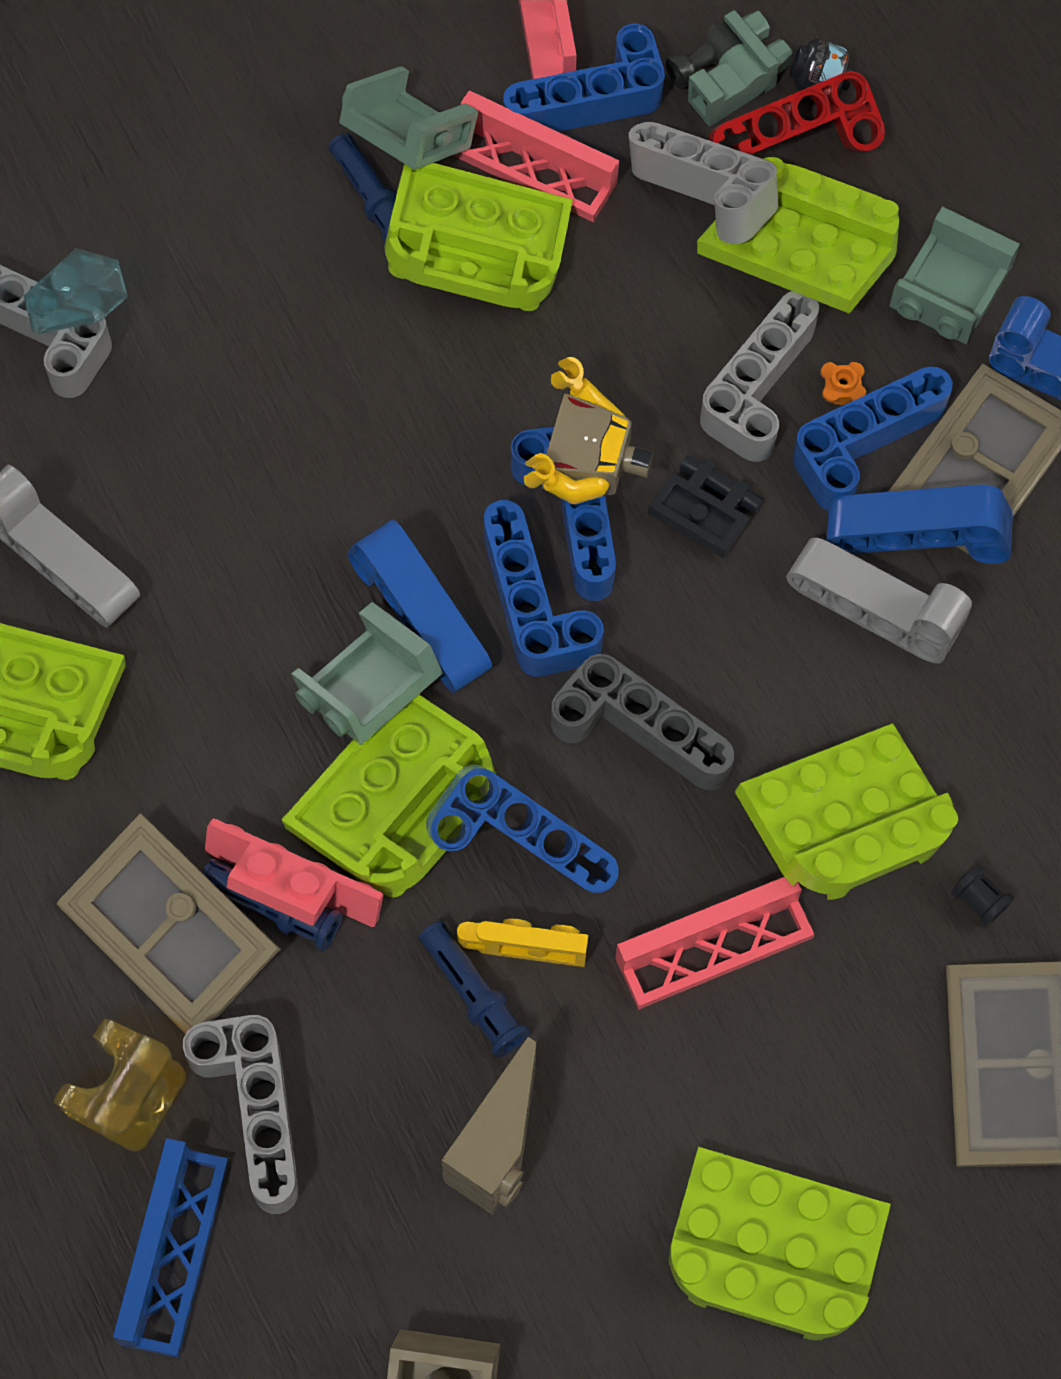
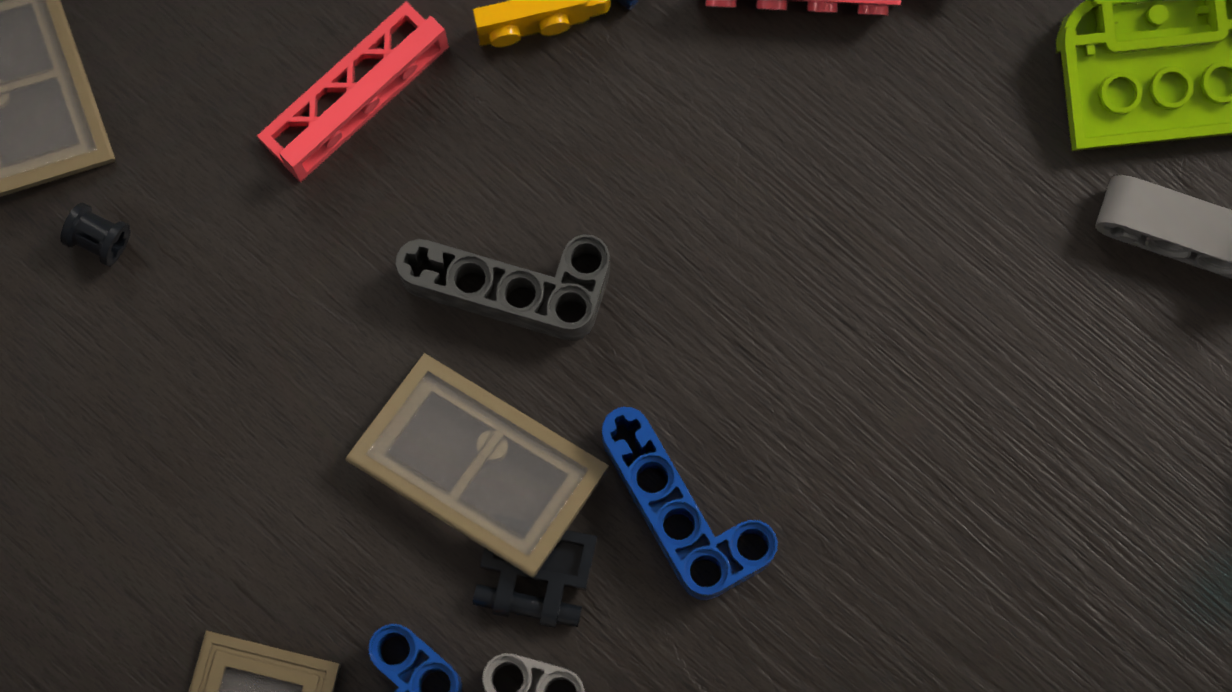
camera: 160 degrees right, 10 degrees up
(369, 677) = (814, 214): sand green panel -> none
(377, 796) = (731, 113): lime plate -> none
(420, 602) = (812, 321): blue beam -> none
(528, 587) = (687, 390): blue beam -> none
(529, 834) = (587, 110): blue beam -> none
(587, 443) = (687, 548): torso -> none
(722, 595) = (478, 464): none -> clear door
(848, 813) = (254, 258): lime plate -> none
(881, 602) = (301, 522): light grey beam -> none
(924, 519) = (280, 625): blue beam -> none

